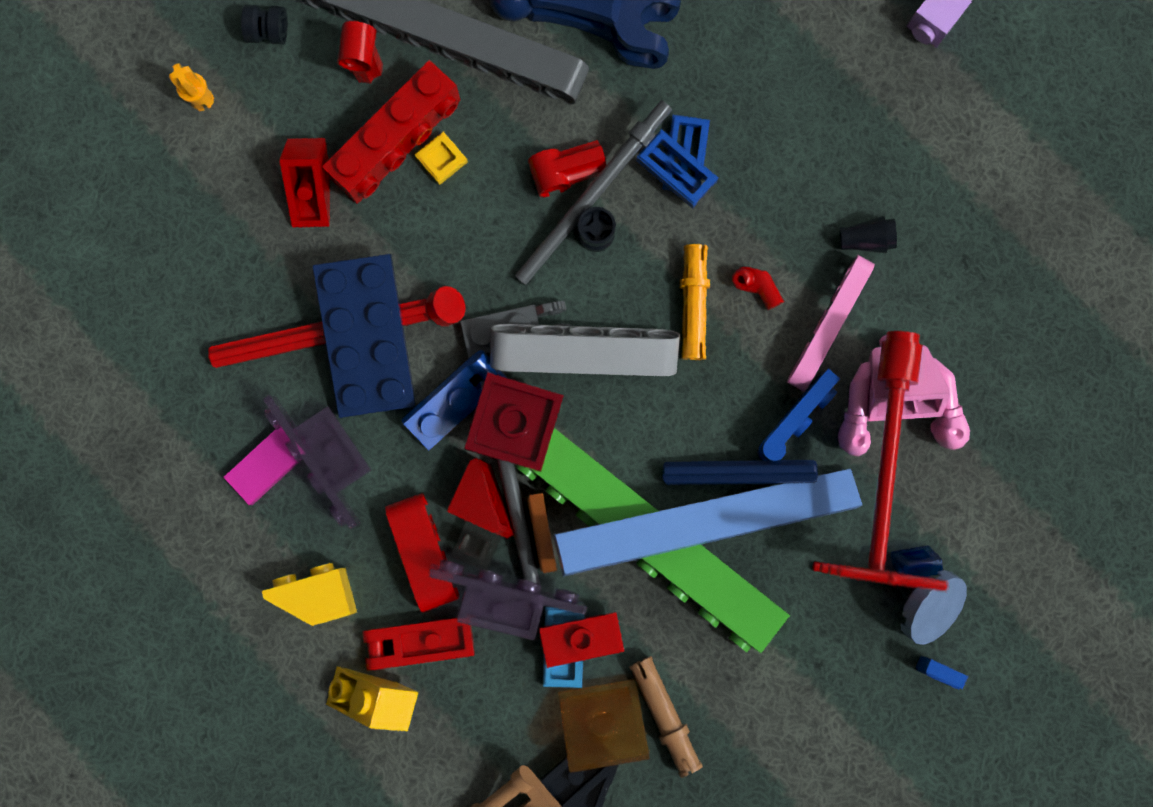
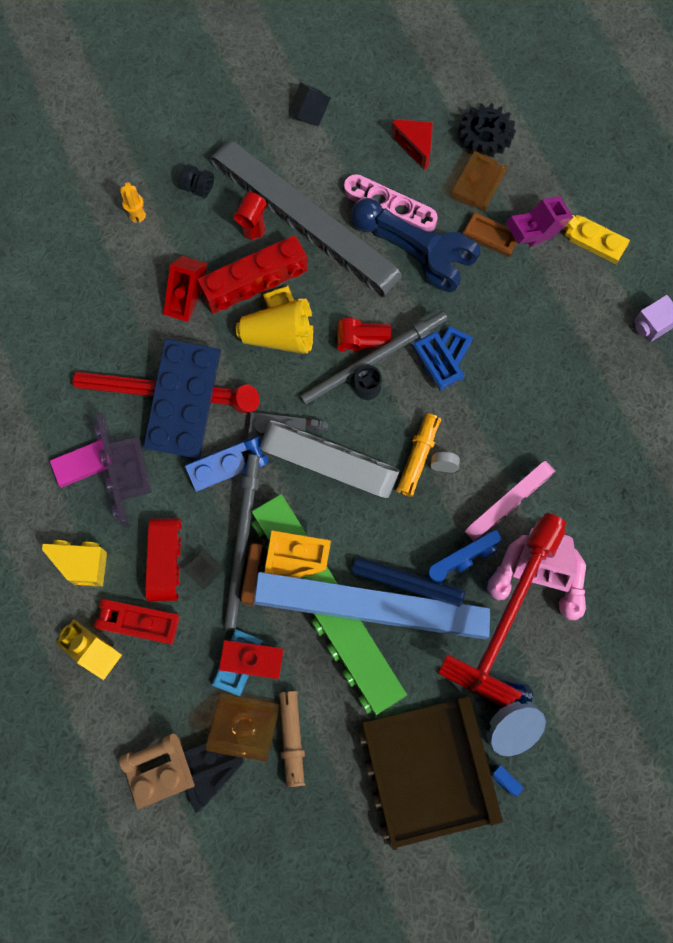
camera: 20 degrees right, 10 degrees down
(454, 195) = (279, 327): none -> yellow cone
(480, 500) = (217, 536): red slope -> none
(503, 605) = (203, 613): clear purple bracket -> none
(514, 422) = (260, 488): dark red plate -> none
(592, 493) = (296, 554): none -> light orange wing
(732, 300) = (445, 462): none -> light grey tile
(758, 282) = (469, 457): red arm -> none
(846, 694) = (429, 773): none -> dark brown panel
(871, 236) = (559, 451): black cone -> none

